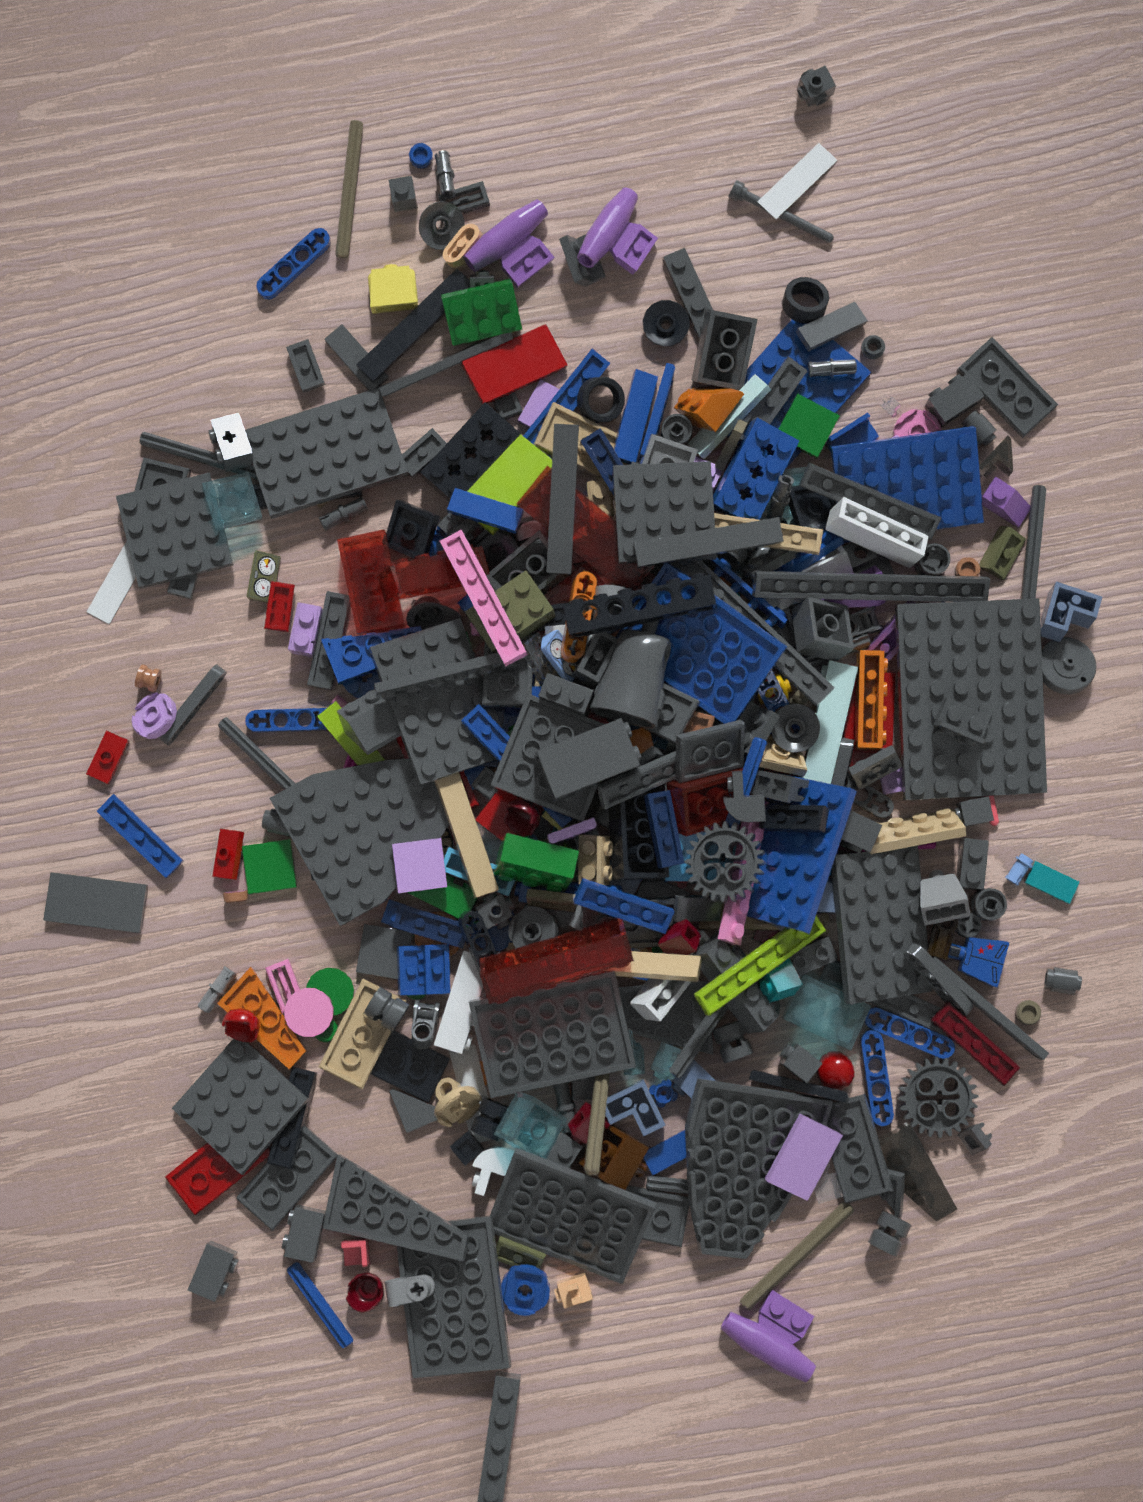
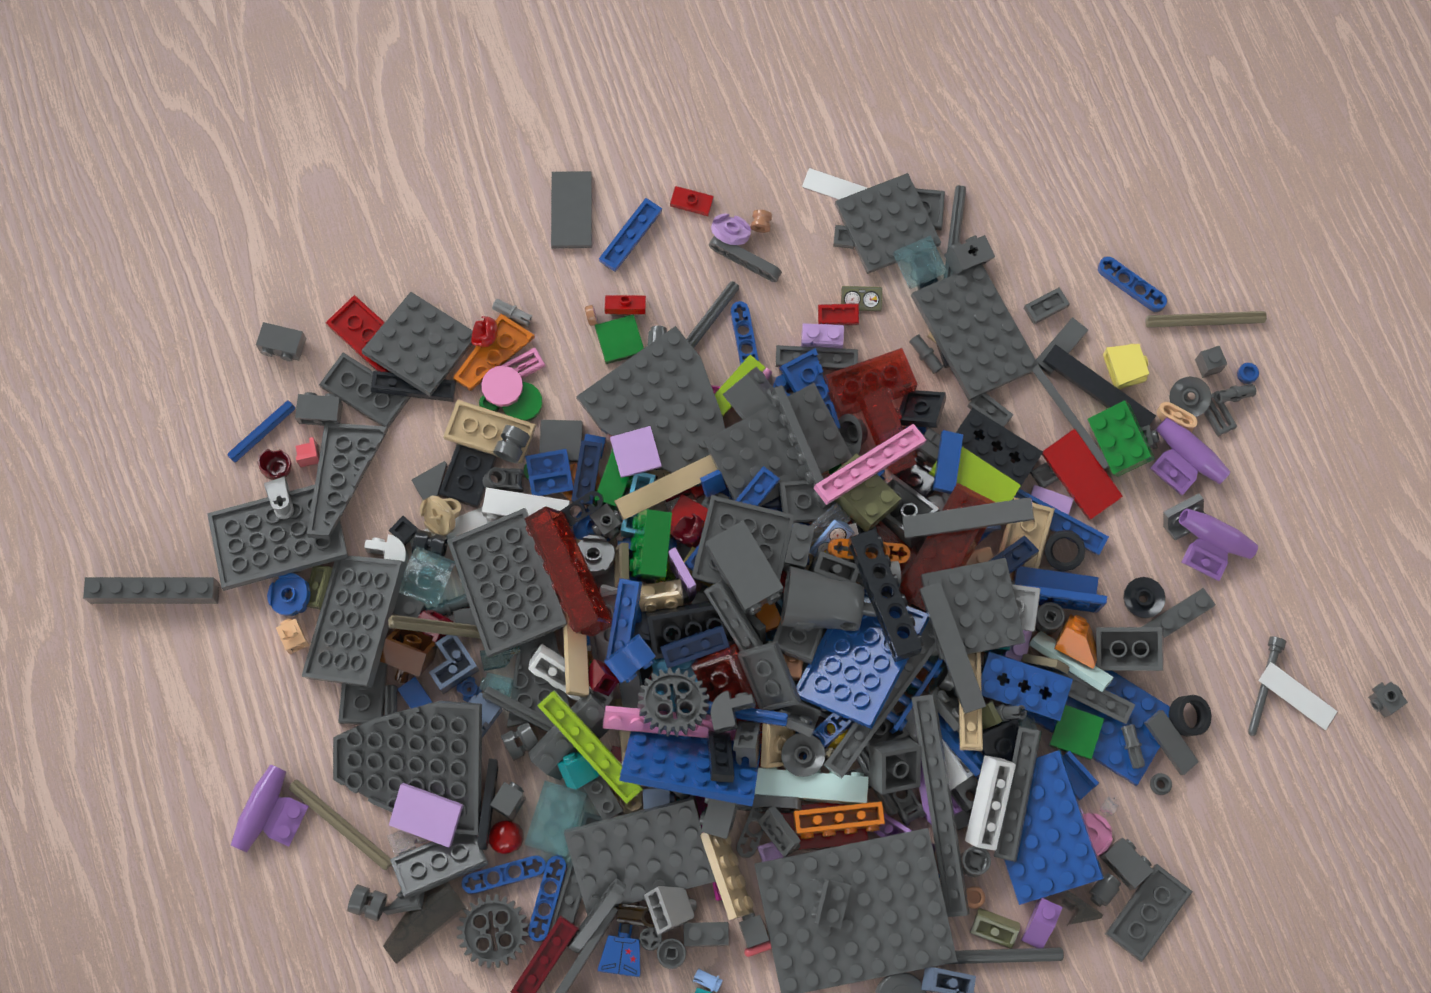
camera: 75 degrees right, 10 degrees down
(469, 782) = (712, 483): none -> blue tile
(668, 904) = (630, 659): none -> blue brick
(785, 514) = (990, 716): none -> olive tile
(975, 1139) = (459, 970): flat silver tile -> none

